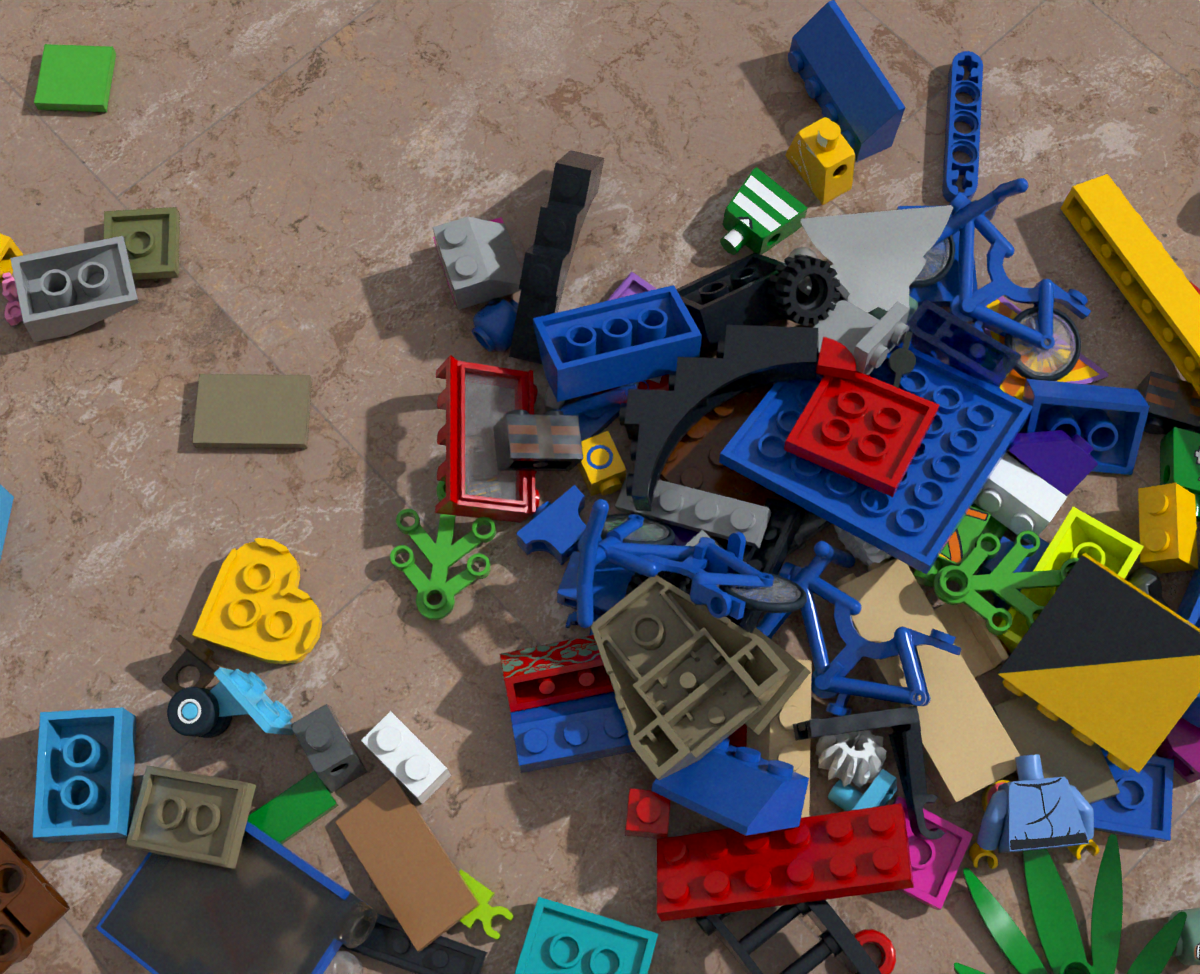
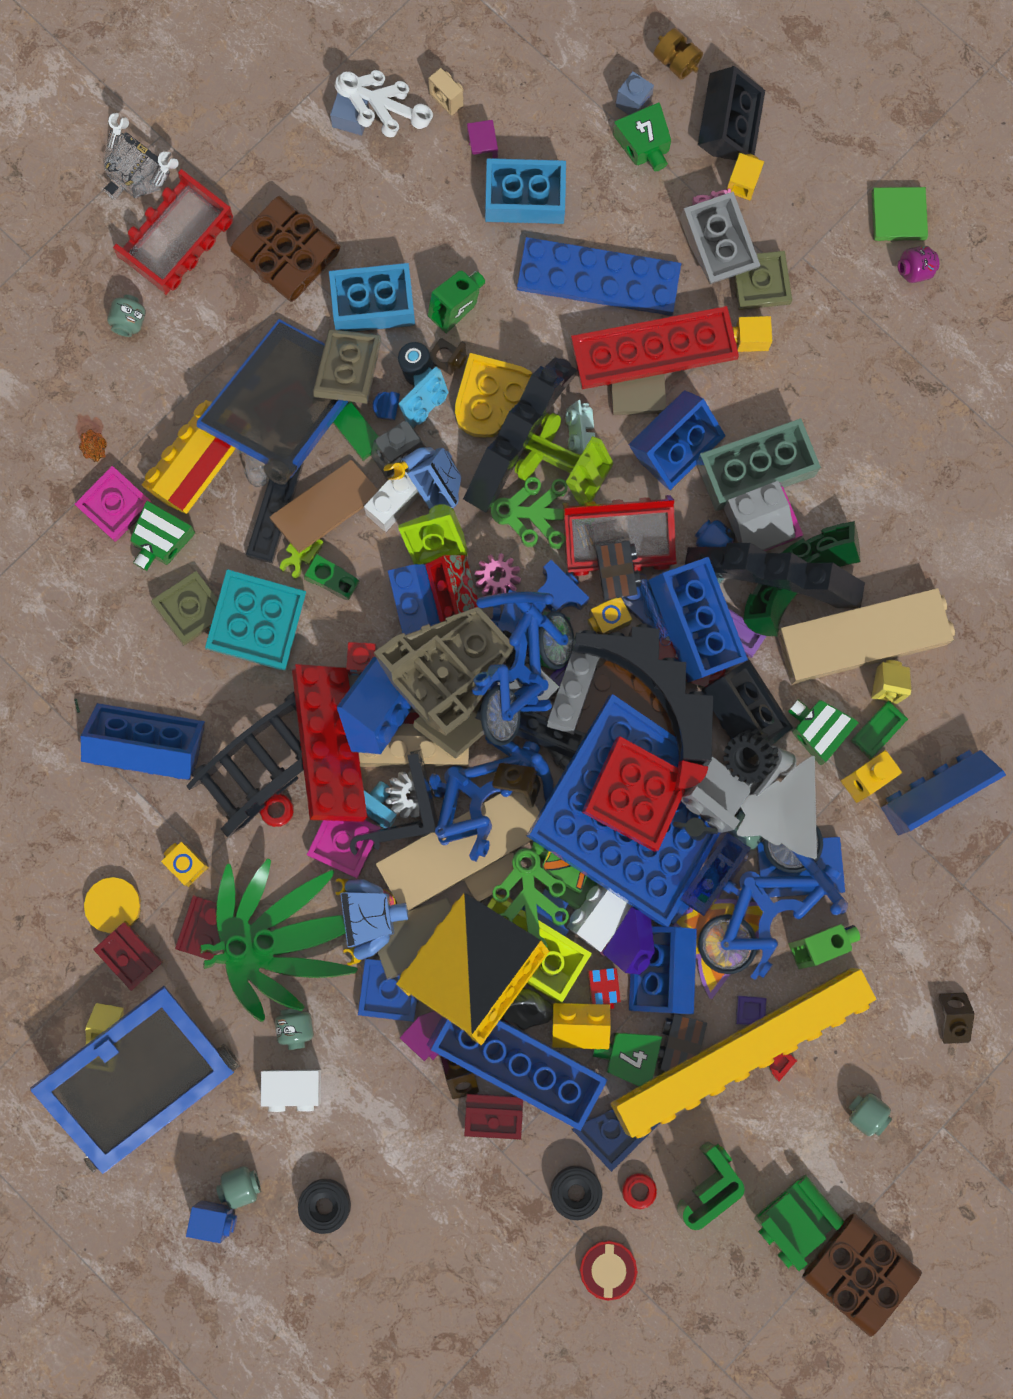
camera: 85 degrees right, 10 degrees up
(100, 456) = (599, 276): none -> blue plate
(107, 651) = (454, 299): none -> green torso
(149, 56) = (918, 264): none -> magenta head
(216, 258) = (753, 333): none -> yellow brick
(220, 383) = (654, 347): none -> red plate
(257, 762) = (386, 405): none -> blue plate
(312, 491) = (579, 418): none -> light aqua hinge
(328, 565) = (518, 428): none -> black arch
(352, 362) = (677, 438): none -> blue slope
(384, 690) = (431, 474): none -> medium blue torso
(385, 481) = (585, 470): none -> lime piece
(403, 262) = (758, 460): none -> sand green brick
(471, 696) = (434, 535): none -> lime slope
(518, 858) = (331, 577): none -> leg
(523, 189) = (834, 545): none -> dark green brick
(548, 608) = (490, 570): none -> bright pink gear
(641, 159) = (865, 636): none -> tan brick
(702, 127) = (891, 682): none -> light yellow slope
(756, 150) = (879, 730): none -> green tile
(837, 592) = (518, 779): none -> dark brown bracket
(966, 113) = (930, 886): blue beam -> none
(1042, 232) = (823, 945): none -> bright green torso
(1109, 499) = (604, 987): none -> red brick
(1120, 91) = (957, 1021): none -> dark brown bracket
(1121, 327) = (750, 1009): none -> dark purple tile

